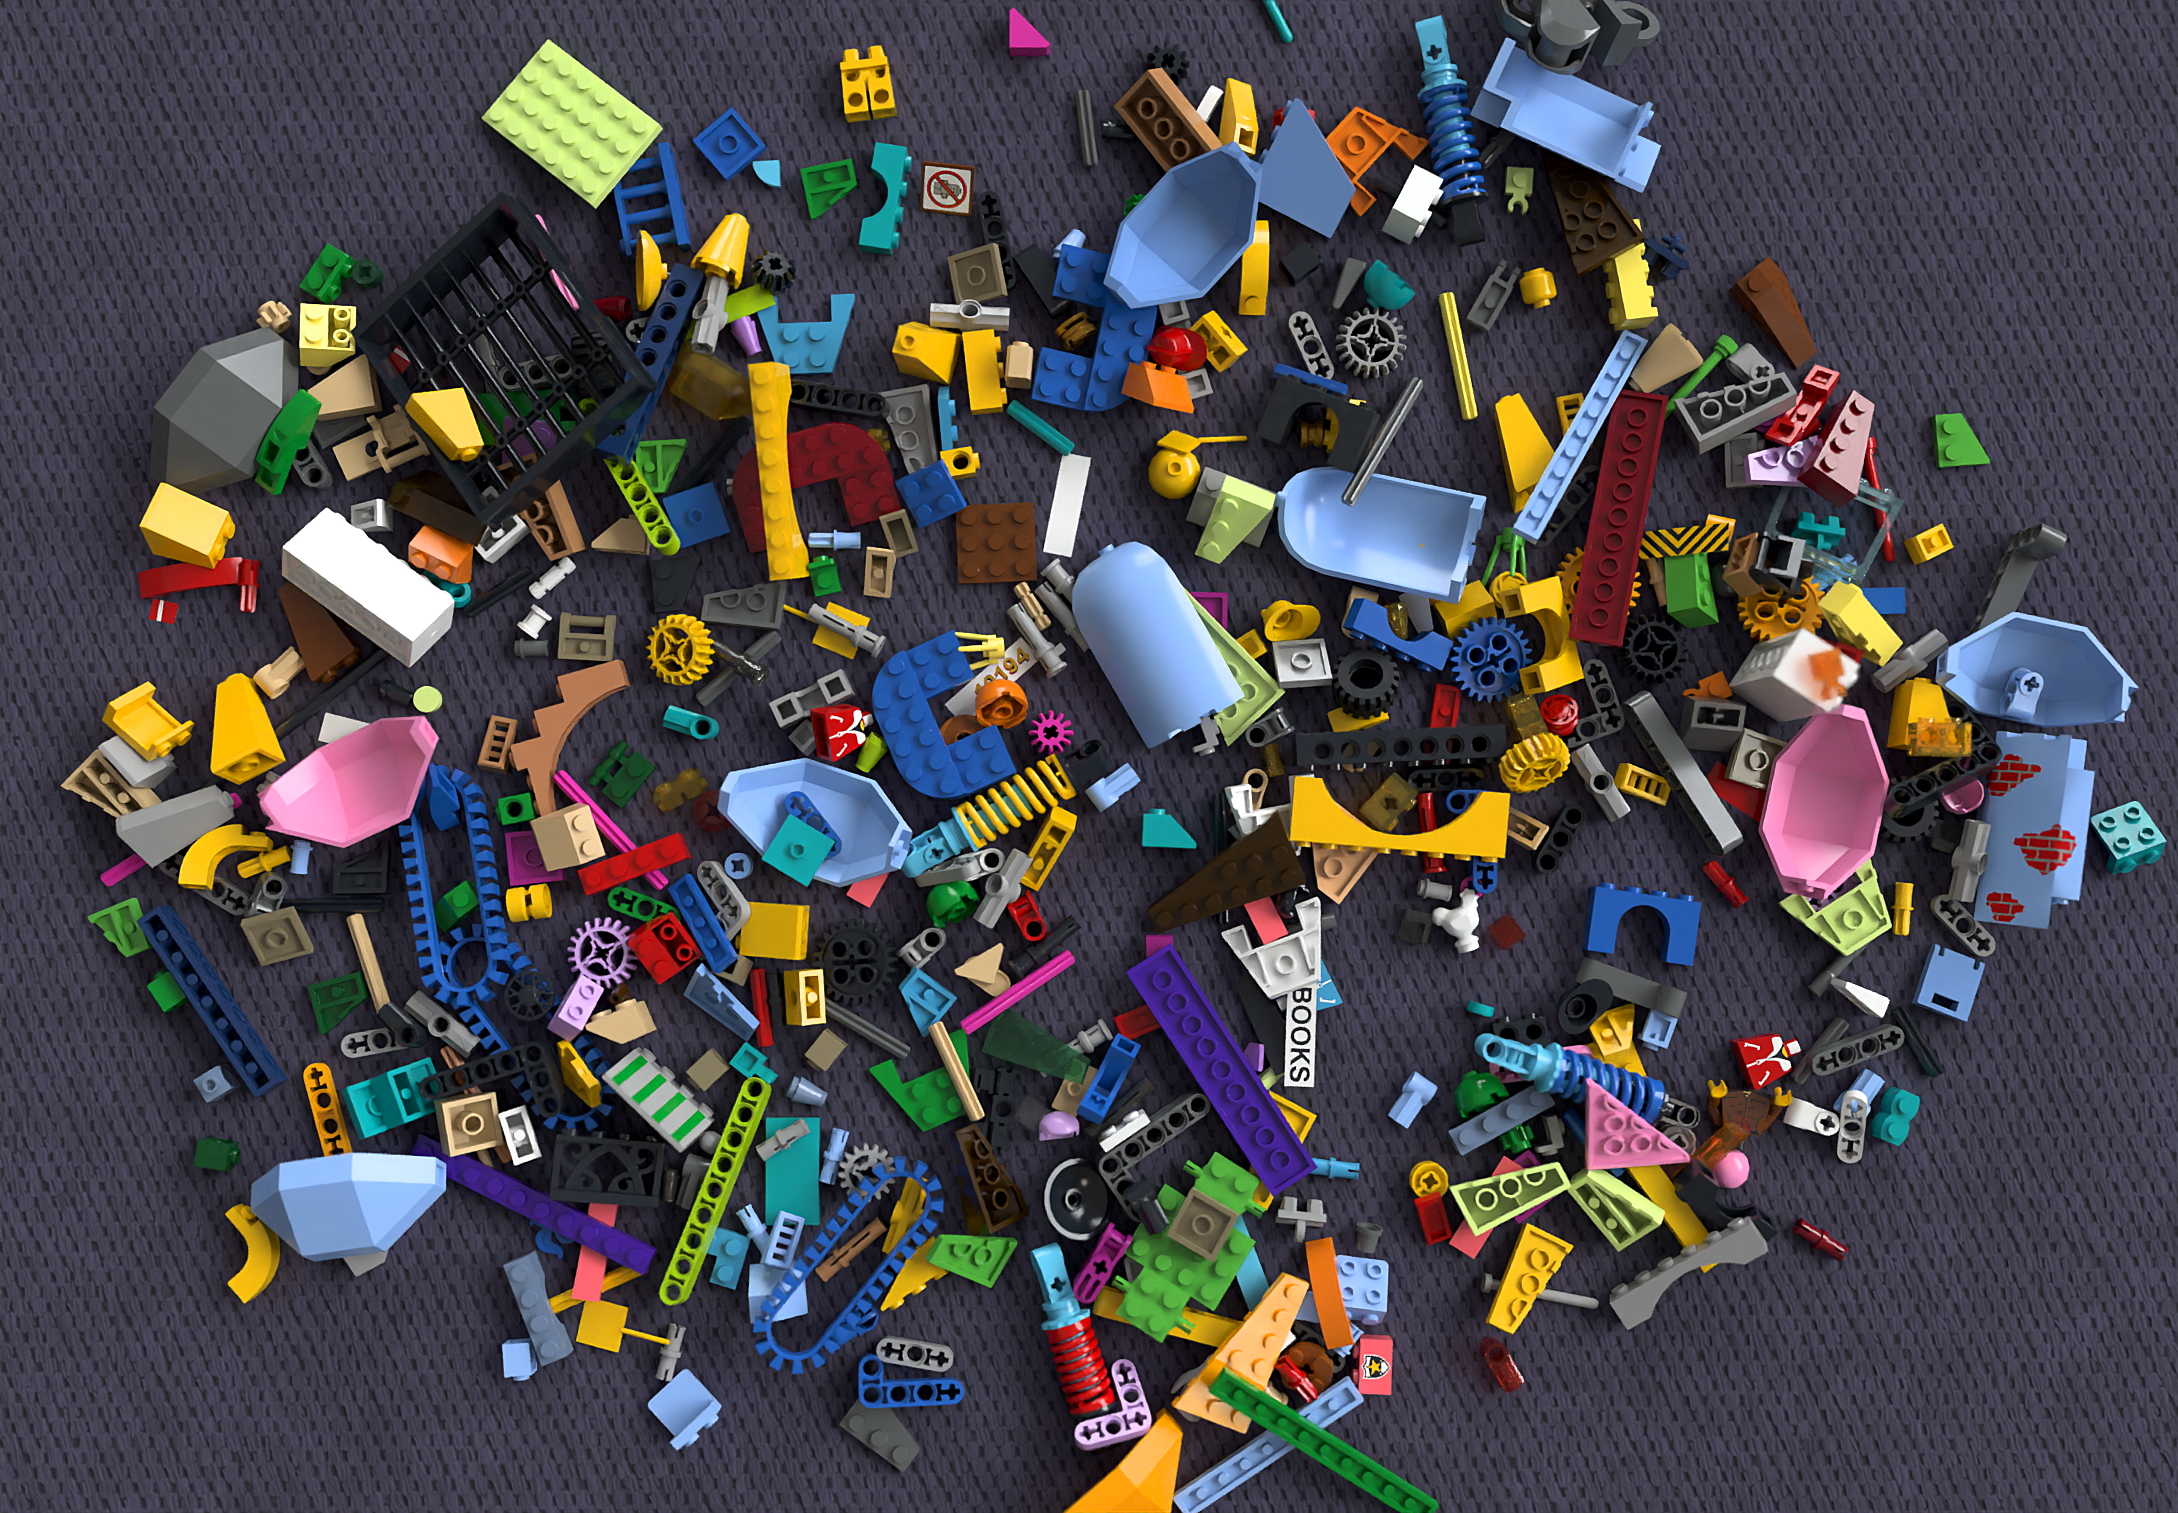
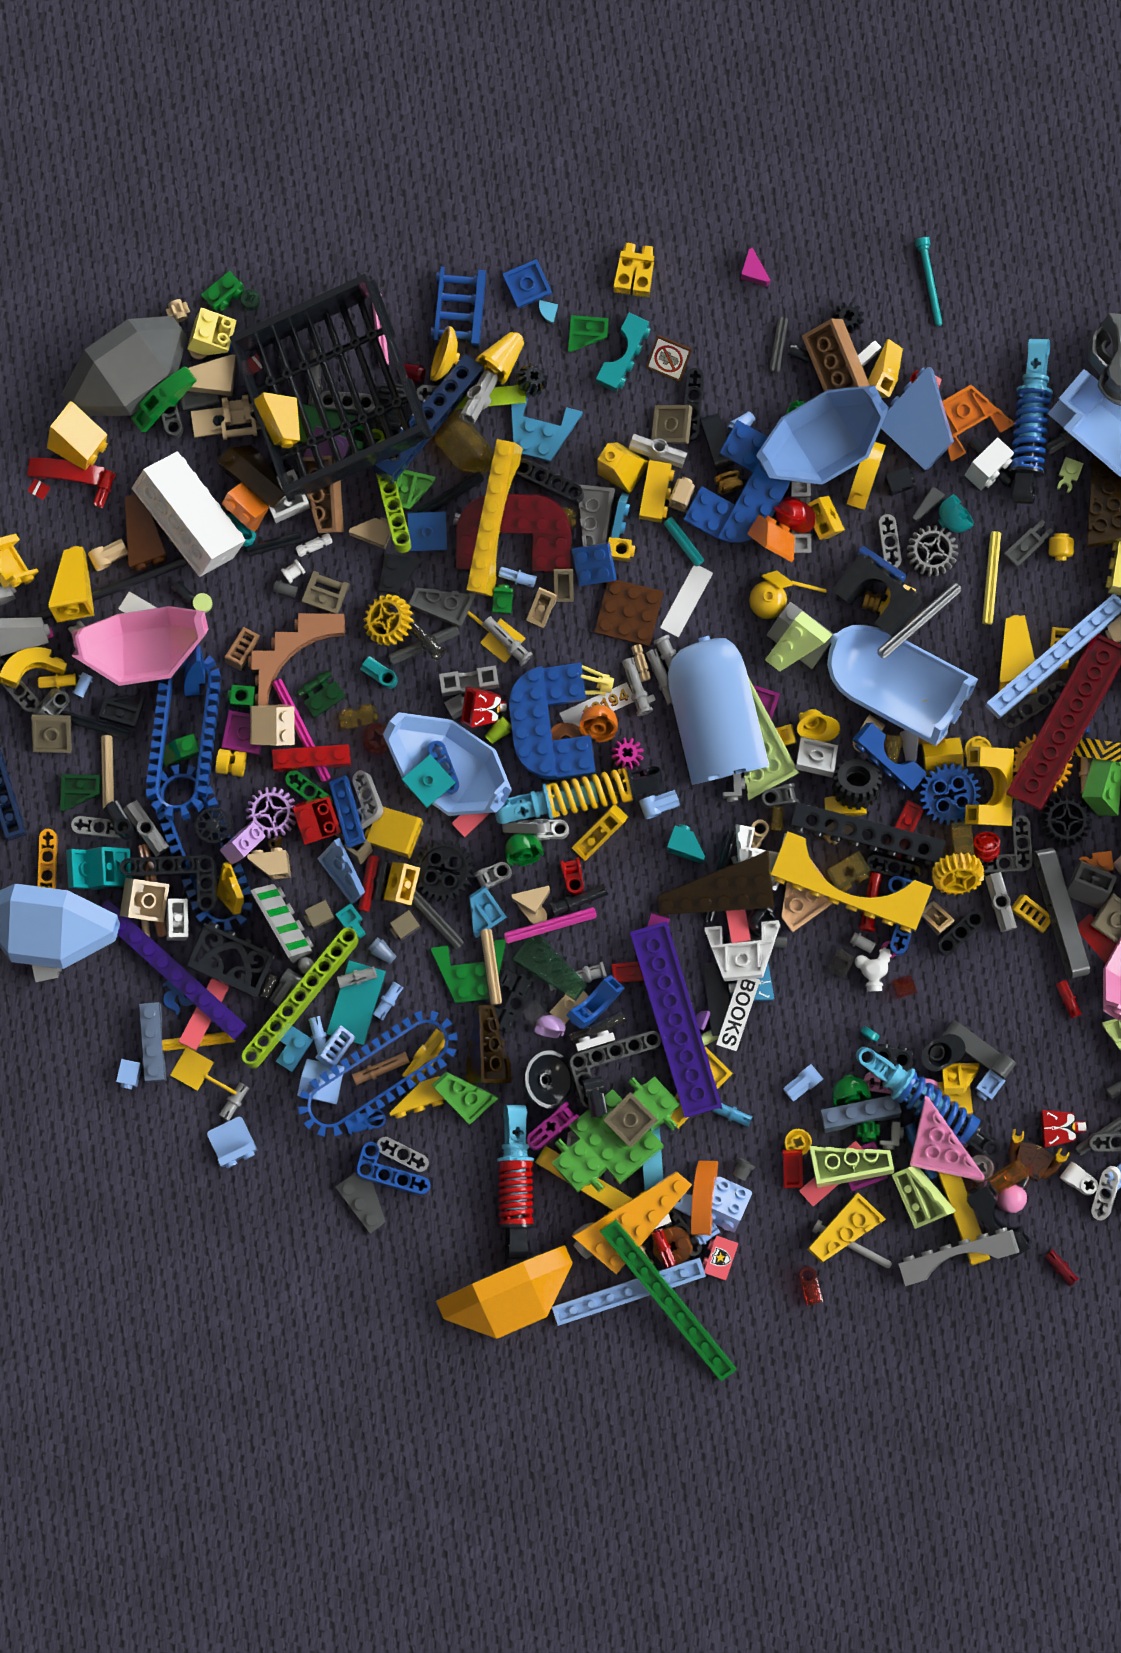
camera: 25 degrees right, 5 degrees down
(372, 516) = (203, 465): white slope -> none
(572, 123) = (423, 238): yellowish green plate -> none
(742, 863) = (385, 784): medium blue wheel -> none
(746, 335) = (499, 418): medium lavender cone -> none
(870, 1160) = (397, 1010): light grey gear -> none
(1003, 888) = (562, 849): light grey piece -> none
(1129, 1412) = (539, 1234): lavender beam -> none
(1312, 1217) = (706, 1143): light grey hips -> none
(1510, 543) = (989, 719): bright green plant -> none
(1678, 917) = (1028, 1009): blue arch -> none

